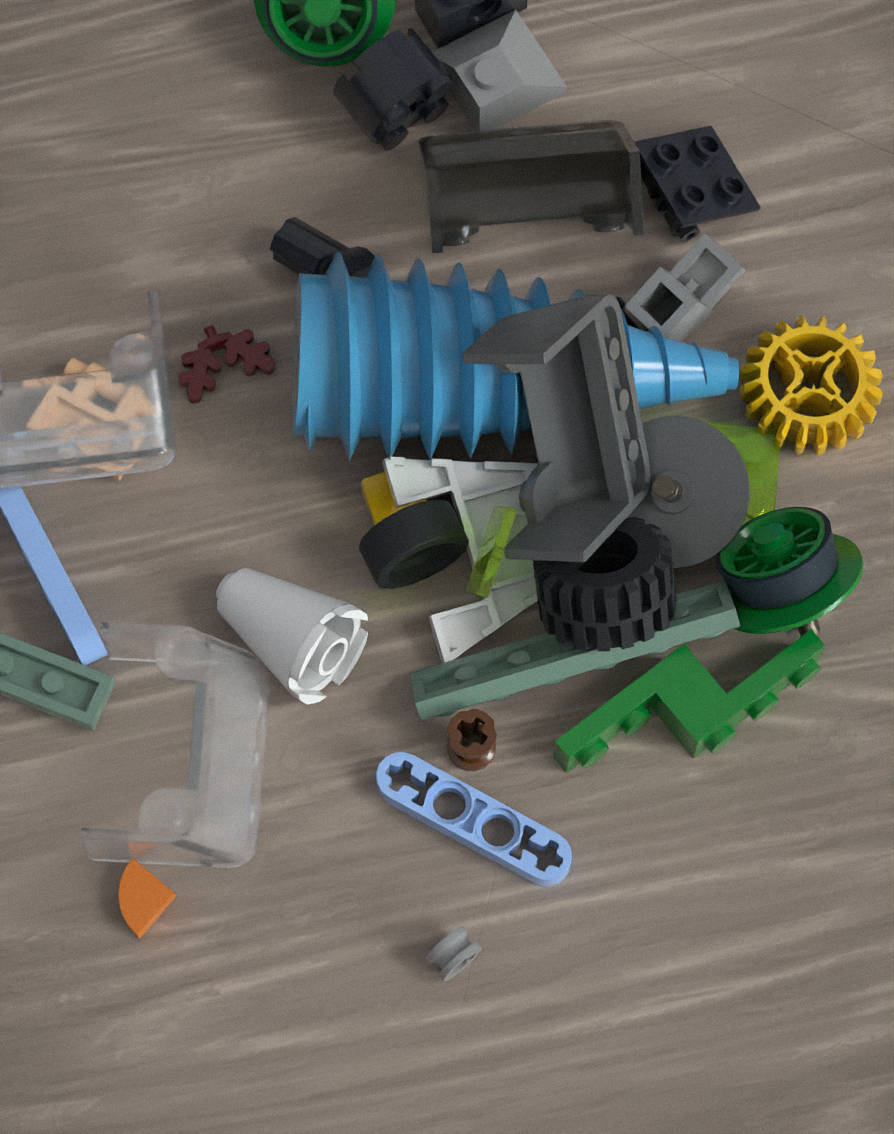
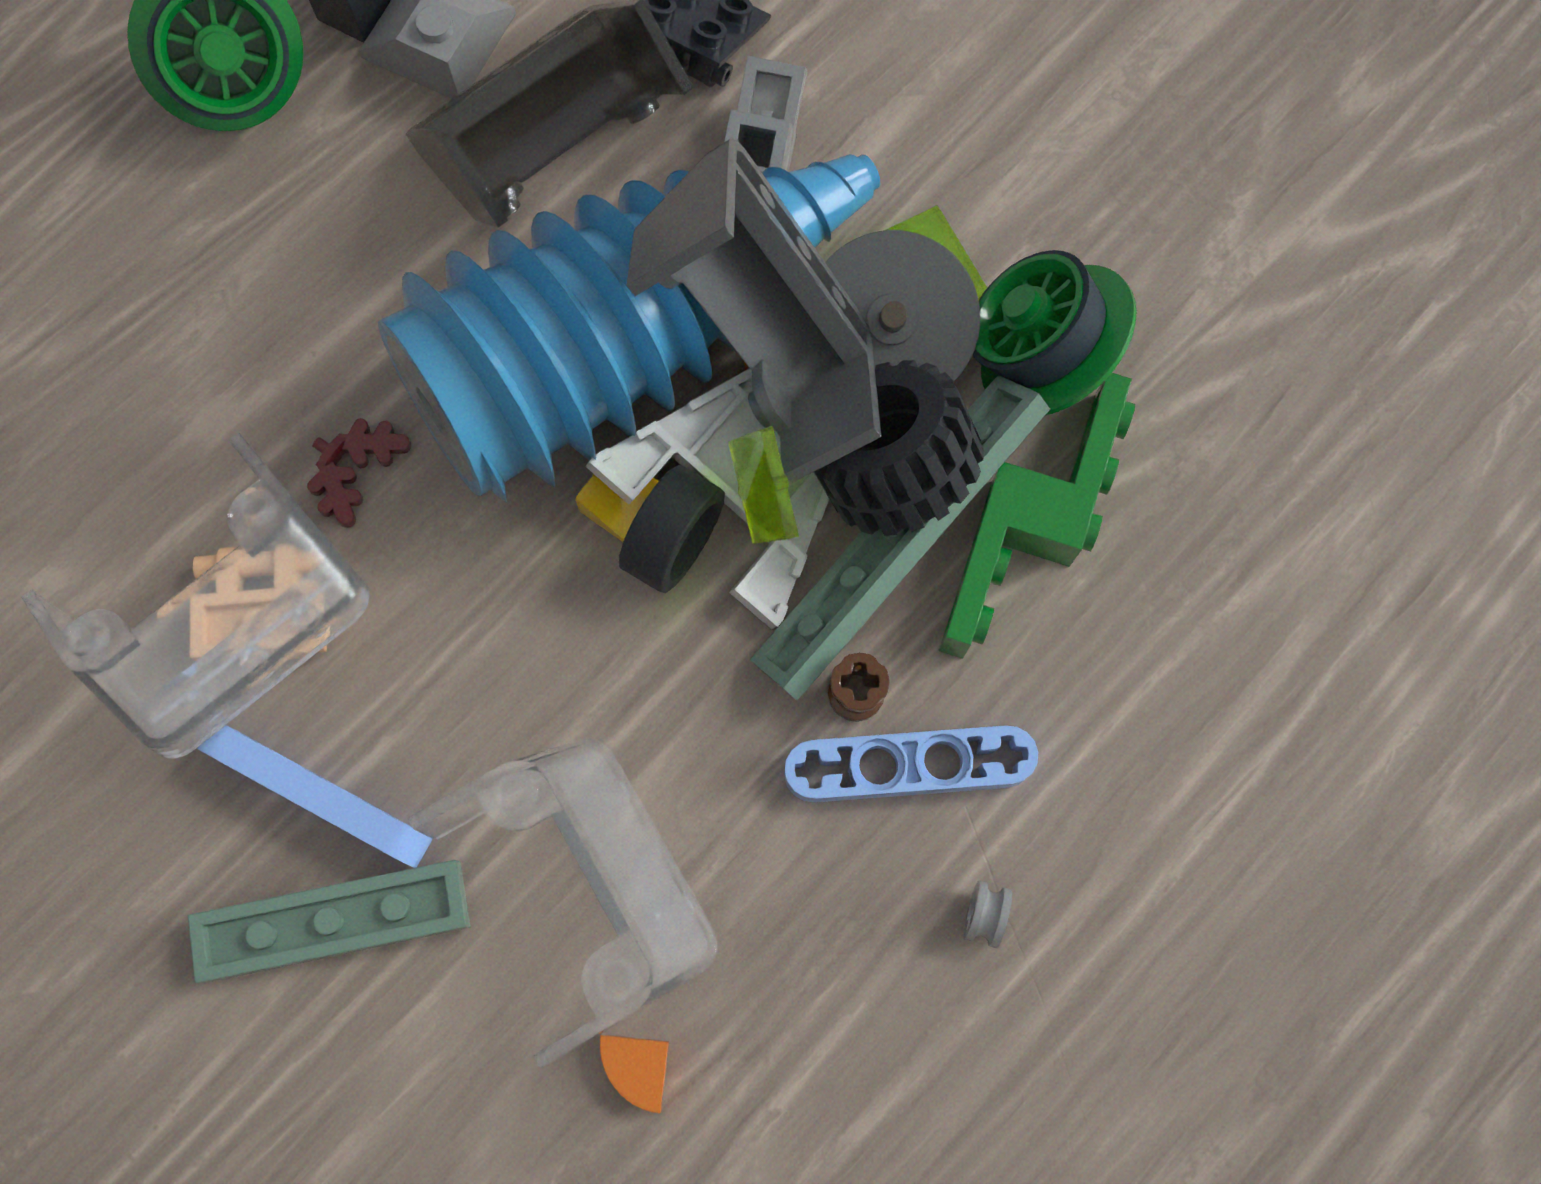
camera: 35 degrees left, 5 degrees up
(293, 630) = (606, 692): white cone -> none
(312, 251) = (359, 303): black piece -> none
(394, 88) = (347, 93): black brick -> none
(786, 354) = (973, 145): yellow gear -> none

